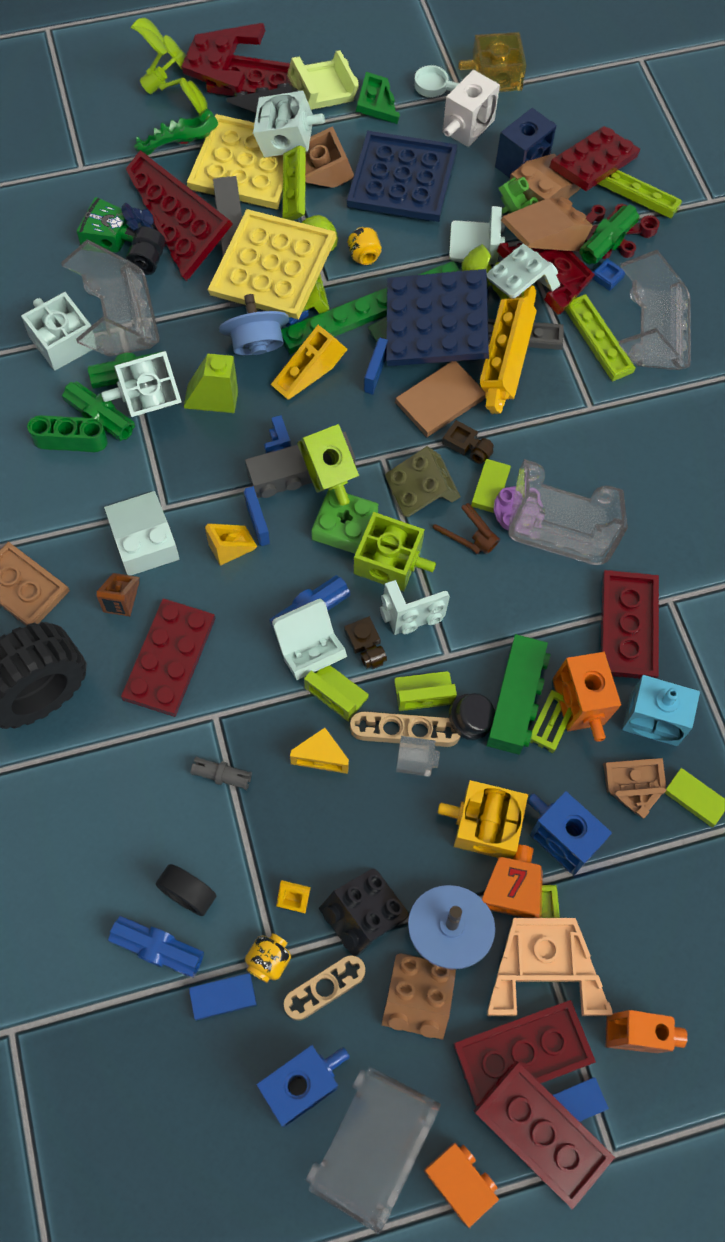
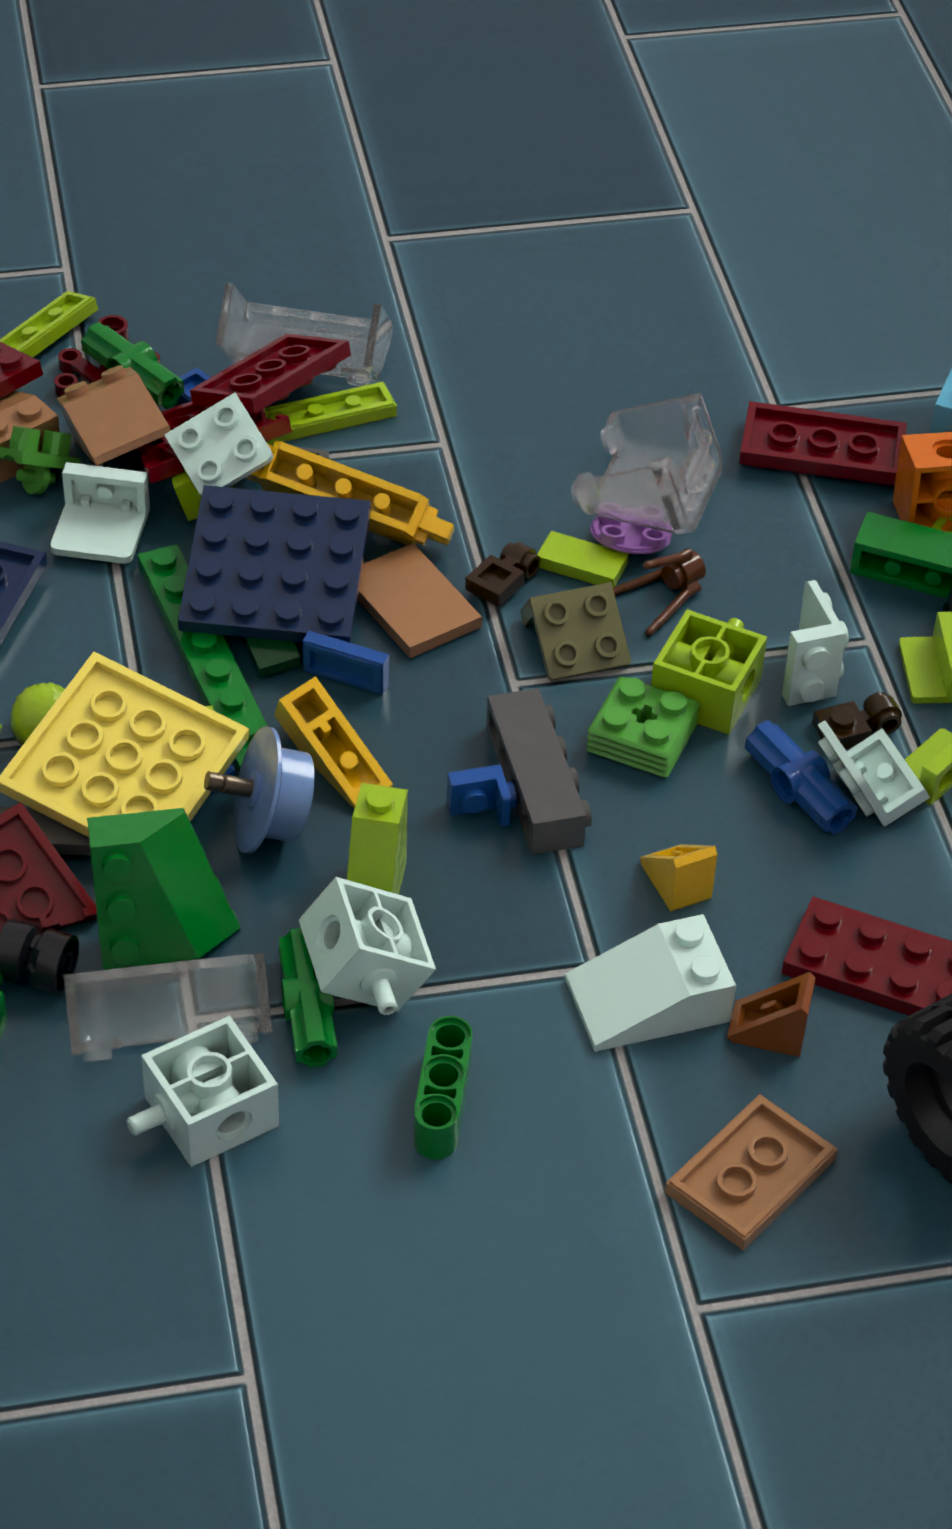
camera: 85 degrees left, 20 degrees down
(94, 407) = (391, 1043): green piece -> none
(171, 281) = (155, 890): none -> green wedge
(256, 516) = (631, 830): blue tile -> none
(329, 476) = (568, 692): lime piece -> none
(364, 245) = (80, 644): yellow head -> none
(478, 259) = (168, 512): lime hair -> none
(611, 299) = (272, 372): none -> dark red plate

